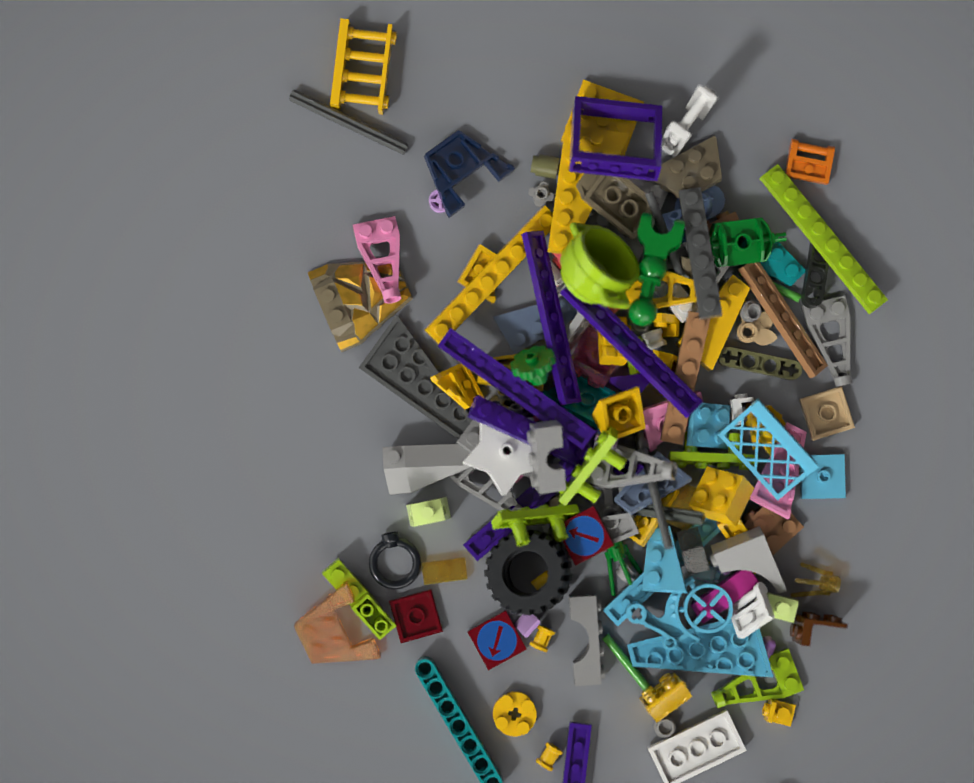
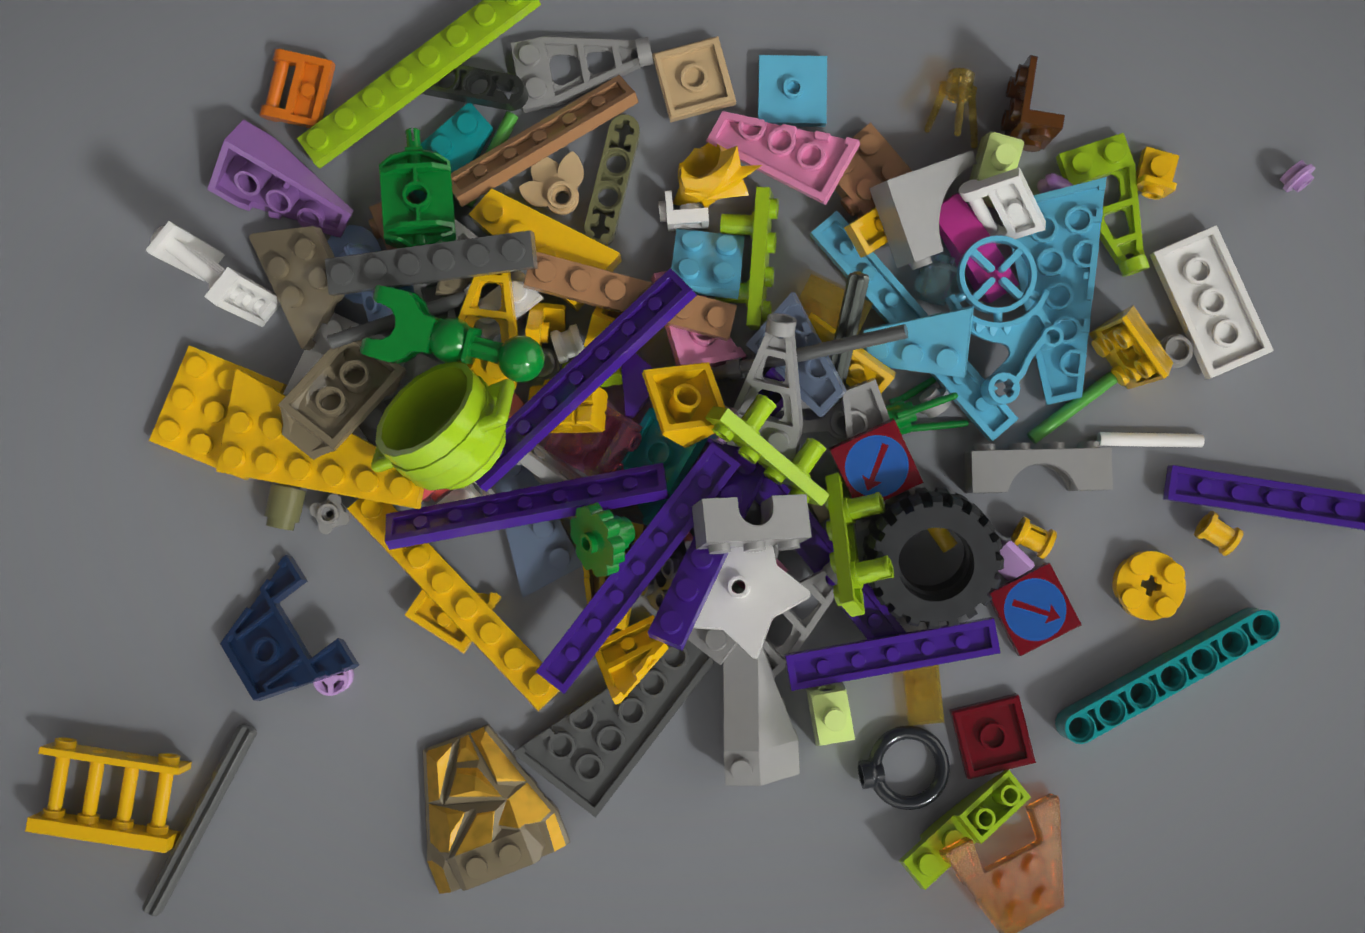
camera: 85 degrees left, 0 degrees up
(378, 232) = (379, 777): bright pink plate -> none
(467, 549) = (892, 653): none -> dark purple plate
(607, 712) = (1150, 439): none -> white bar
(615, 164) = (277, 397): dark purple window -> none
(693, 551) = (905, 295): clear smoke slope -> none
(721, 496) = (820, 246): yellow brick -> none
(750, 311) = (529, 190): light grey plate -> none
(751, 148) = (266, 176): none -> medium lavender wedge
(779, 433) = (728, 145): medium azure fence -> none

